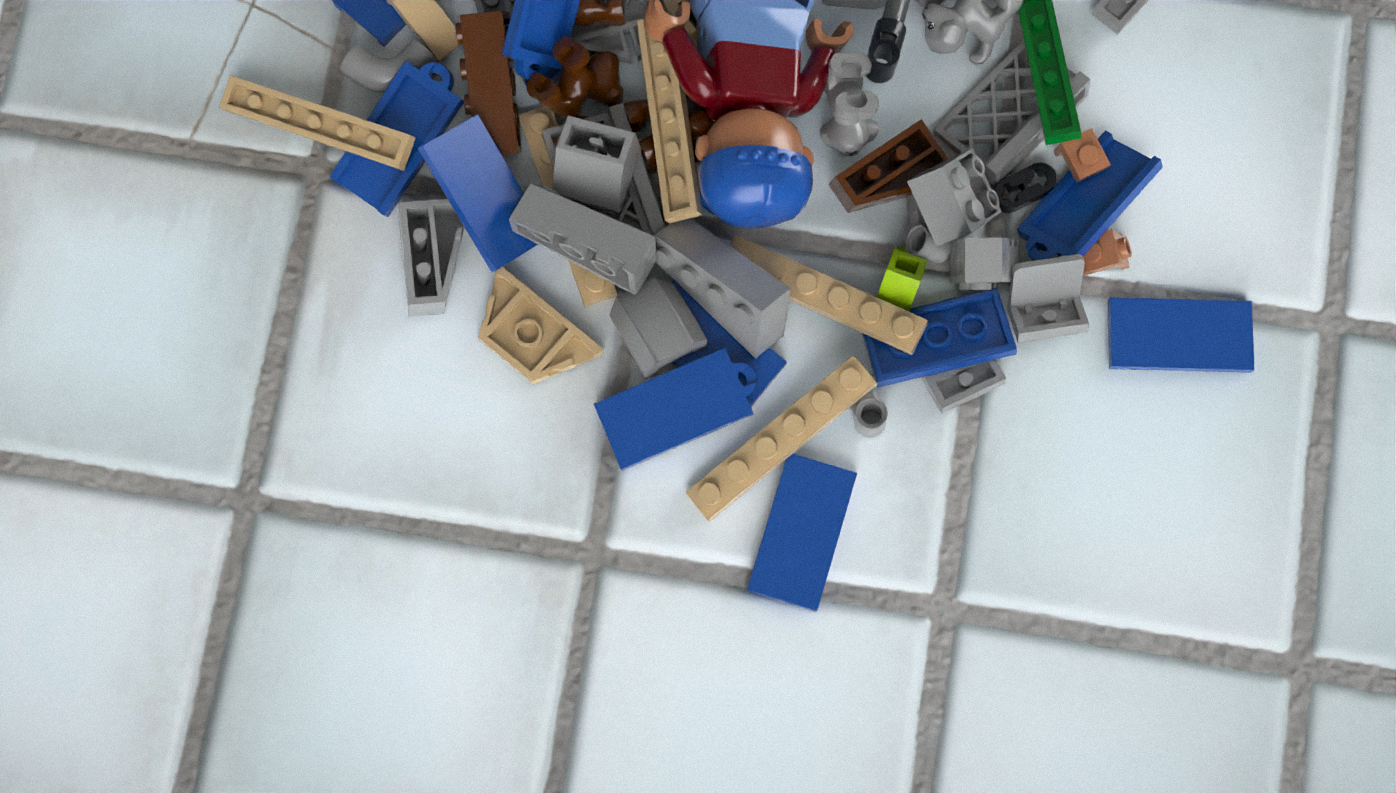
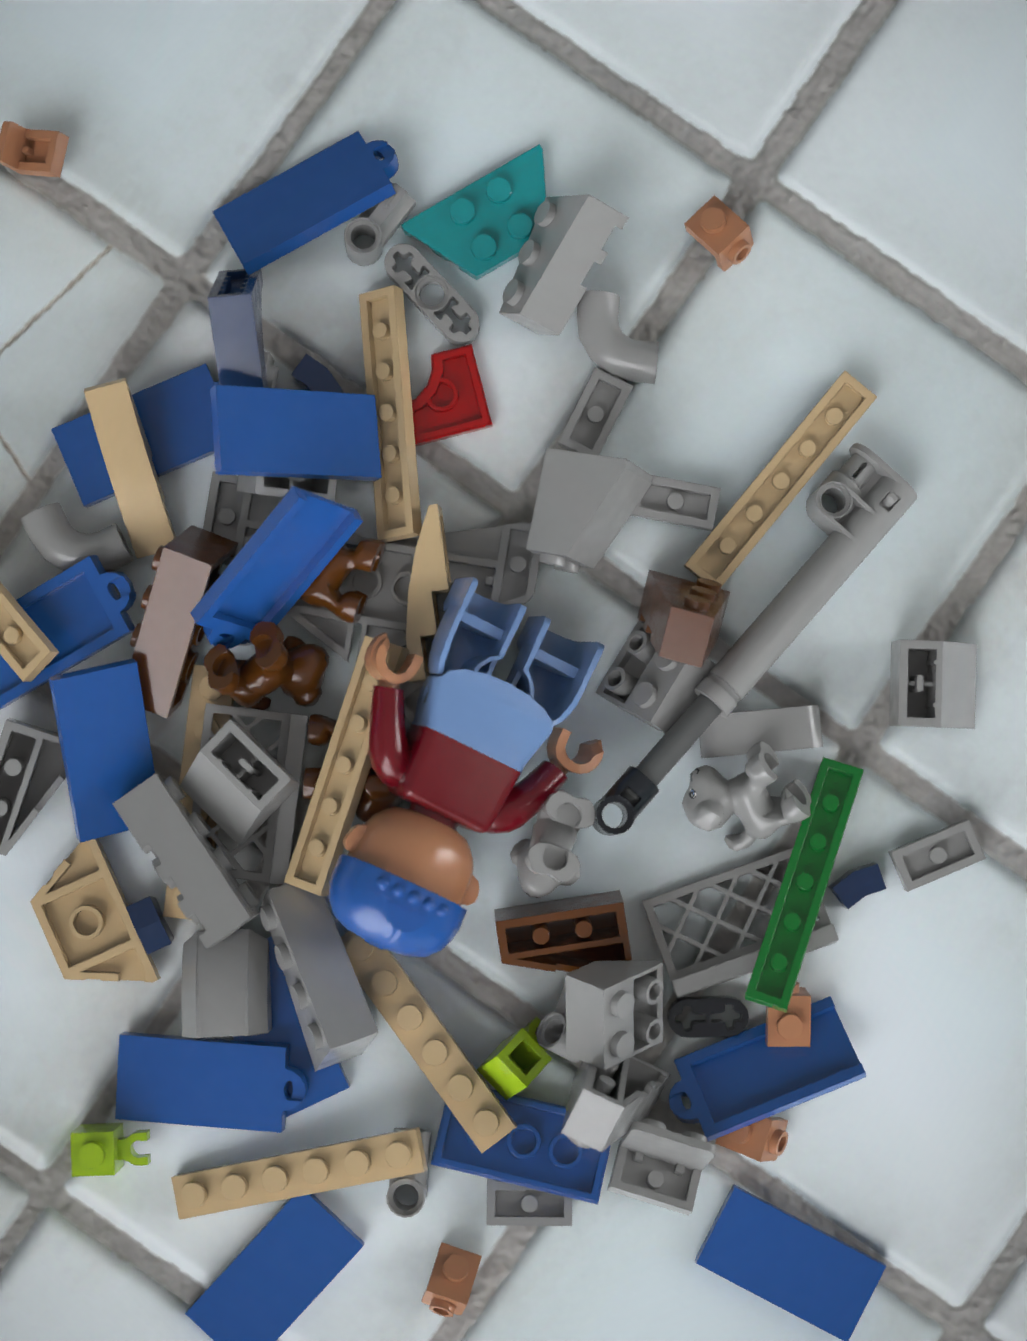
camera: 25 degrees right, 10 degrees up
(576, 312) = (150, 924): none -> dark blue piece
(622, 493) = (103, 1148): none -> lime brick
(937, 468) = (451, 1280): none -> nougat bracket
(1082, 44) = (857, 884): none -> dark blue piece

